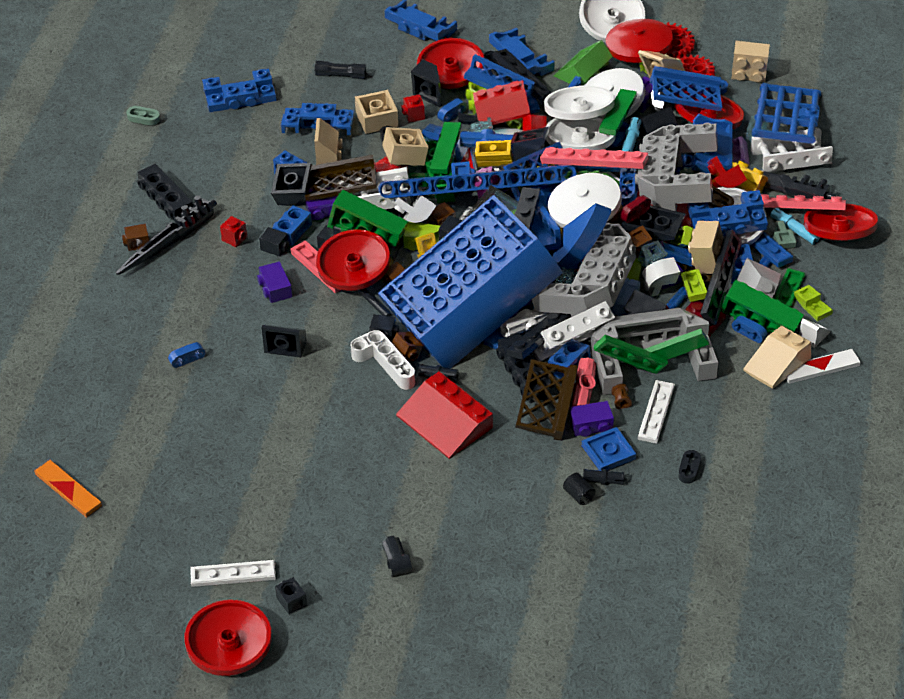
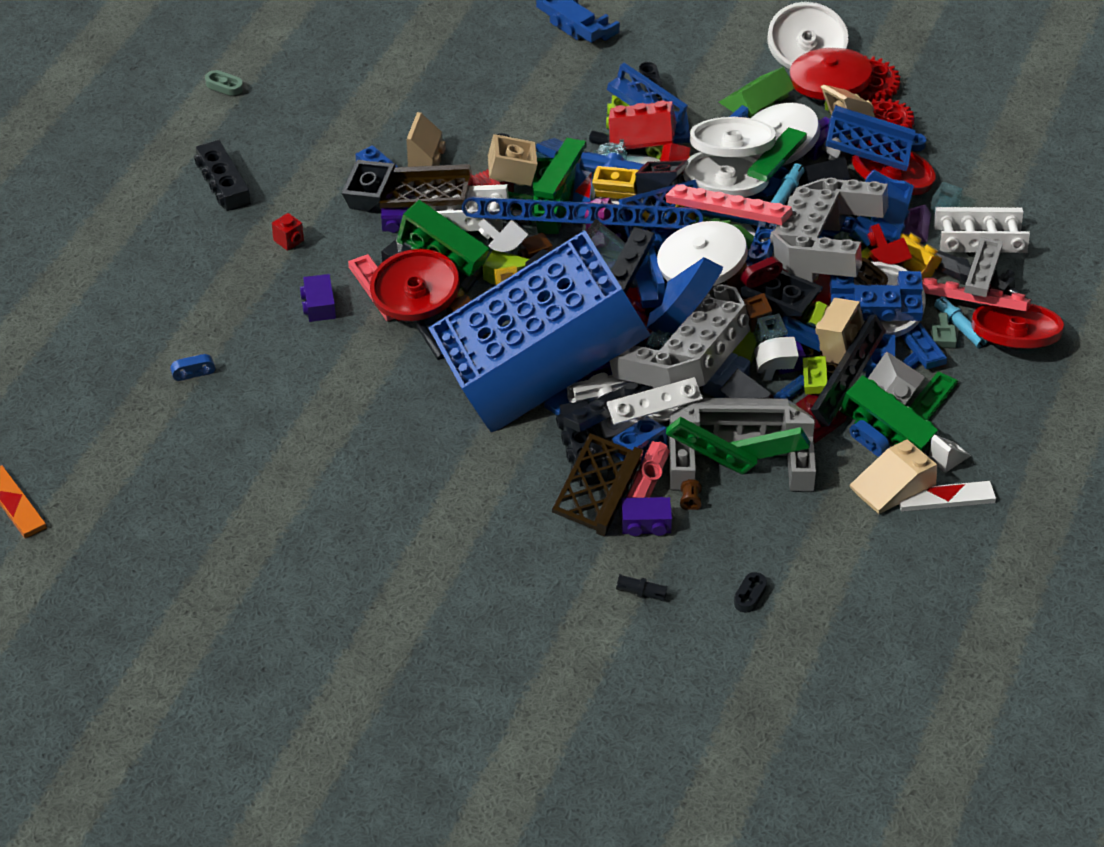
camera: 10 degrees right, 0 degrees up
(135, 236) = (174, 222): reddish brown brick -> none
(183, 226) = (242, 211): black piece -> none
(228, 637) = (142, 705): red dish -> none
(233, 573) = (173, 631): white tile -> none
(239, 94) = (342, 73): blue bracket -> none
(274, 241) = (331, 250): black brick -> none
(283, 340) = (308, 367): black slope -> none
(291, 595) = (231, 668): black brick -> none
(294, 223) = (358, 234): blue brick -> none
(309, 112) = (433, 108): blue bracket -> none
(326, 68) = (453, 57): black axle -> none
(376, 111) = (494, 114): tan brick -> none
(377, 345) = (416, 389): white beam -> none
(385, 324) = (429, 370): black brick -> none
(396, 557) = (367, 646): black piece -> none
(407, 345) = (449, 396): reddish brown brick -> none
(413, 108) = (539, 117): red brick -> none
(426, 82) = (561, 88): black slope -> none
(428, 371) = (480, 433): black pin -> none
(445, 415) = (474, 485): slope -> none
(451, 110) = (584, 125): blue beam -> none
(452, 59) = (591, 66): red dish -> none
(460, 168) = (571, 195): blue brick -> none
(511, 63) = (669, 81): black plate -> none
(516, 45) = (681, 73): blue bracket -> none
(577, 487) = (606, 592): black piece -> none
(608, 449) = (657, 556): blue plate -> none
(656, 411) = (728, 520): white tile -> none
(750, 61) = (959, 116): tan brick -> none
(802, 115) = (1006, 190): blue door -> none
(804, 179) = (983, 267): none -> light grey plate
(811, 302) = (956, 418): lime slope -> none

